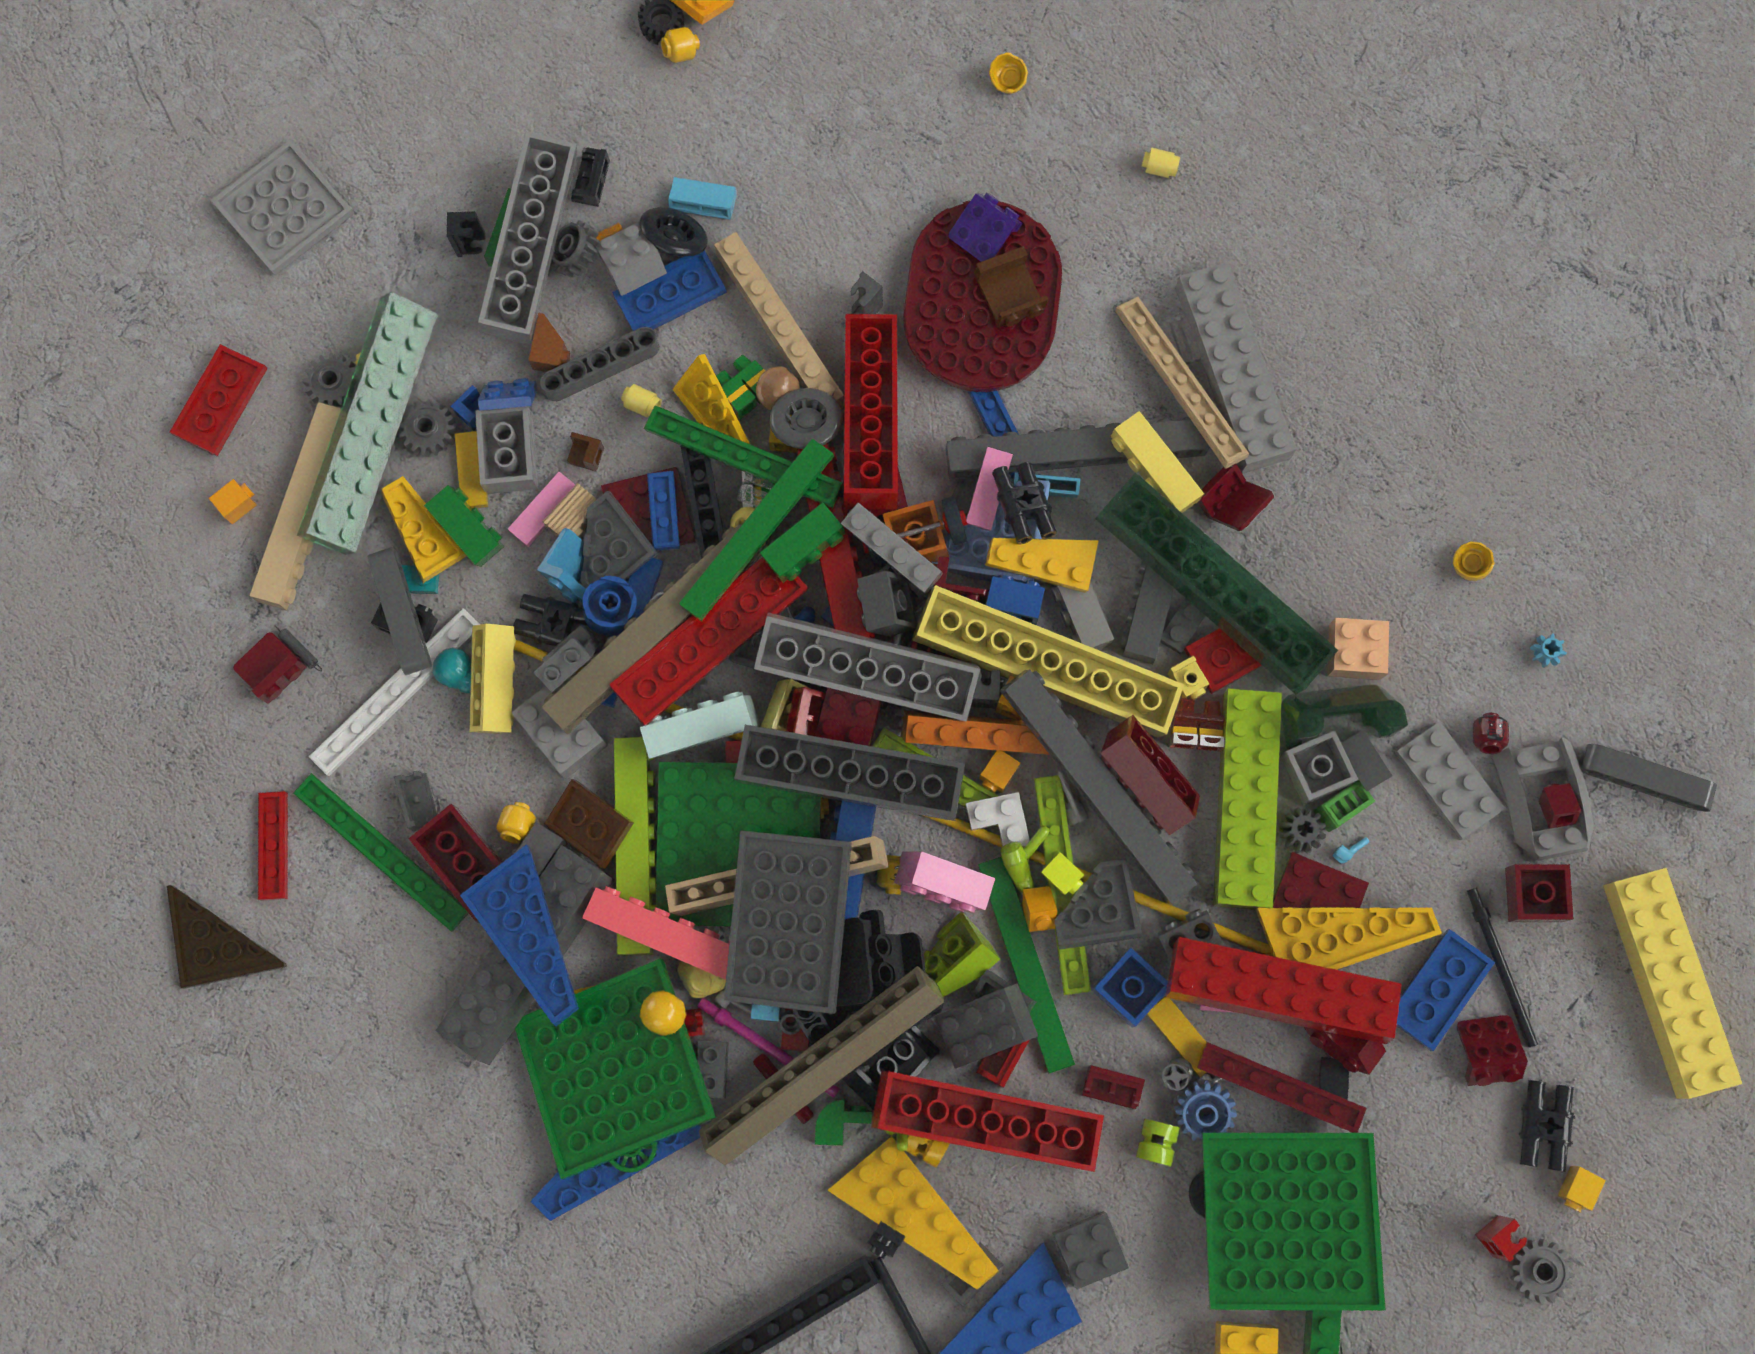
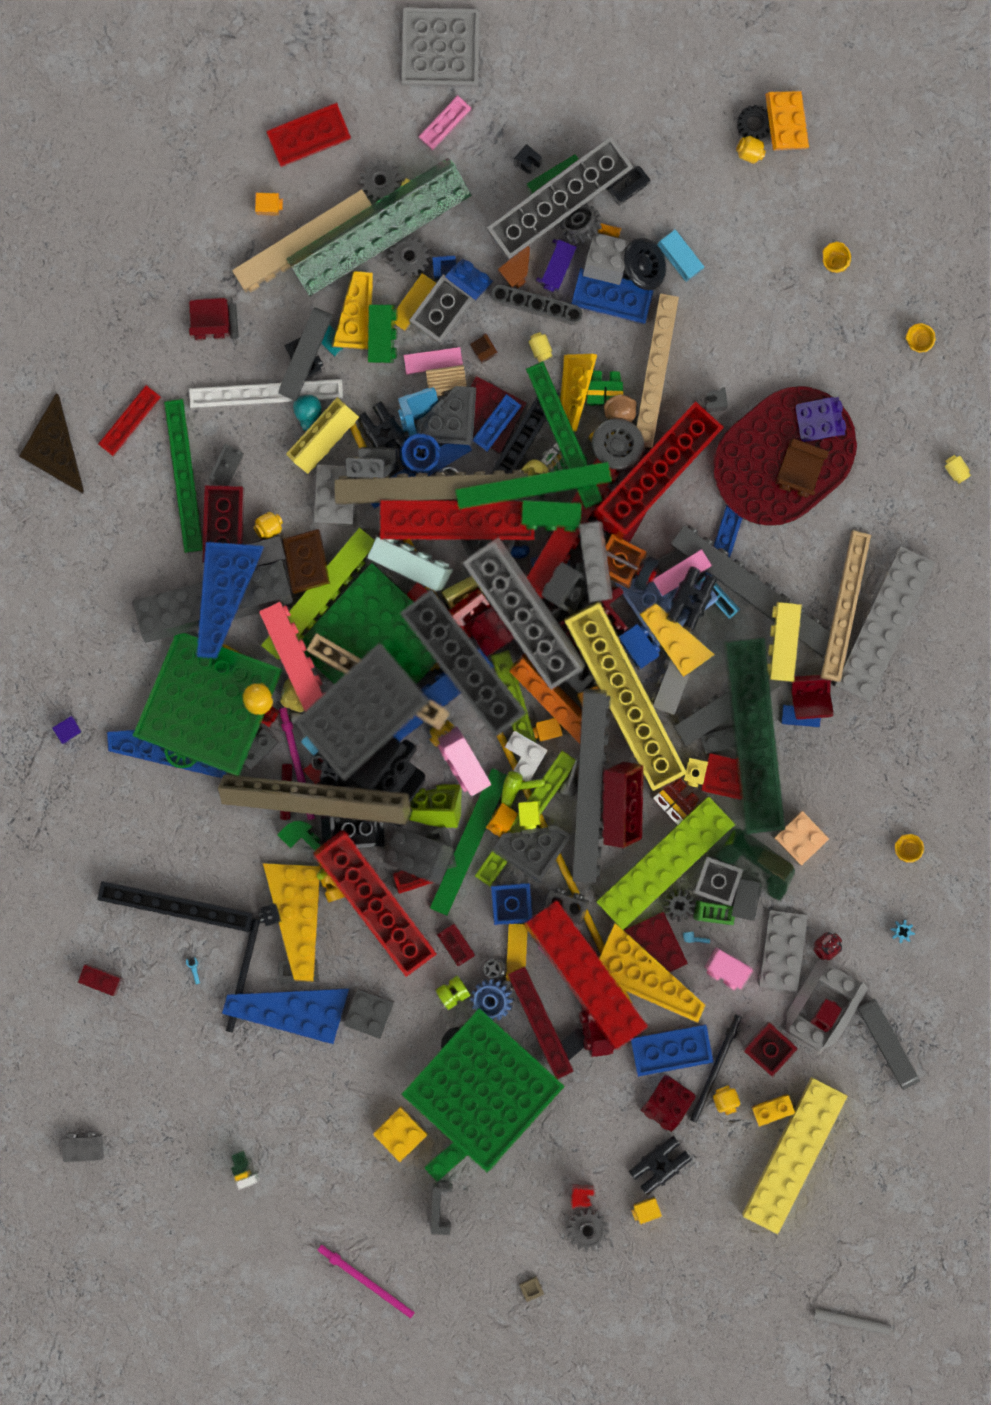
camera: 40 degrees right, 10 degrees up
(351, 274) = (445, 122): none -> bright pink tile
(483, 1239) = (67, 730): none -> dark purple panel
(587, 309) = (557, 266): none -> dark purple brick
(856, 69) = (836, 257): none -> yellow hair
(1232, 539) = (788, 718): none -> blue tile
(1420, 847) = (728, 968): none -> bright pink brick
(1547, 990) = (726, 1100): none -> yellow head
(1603, 955) = (773, 1110): none -> yellow brick

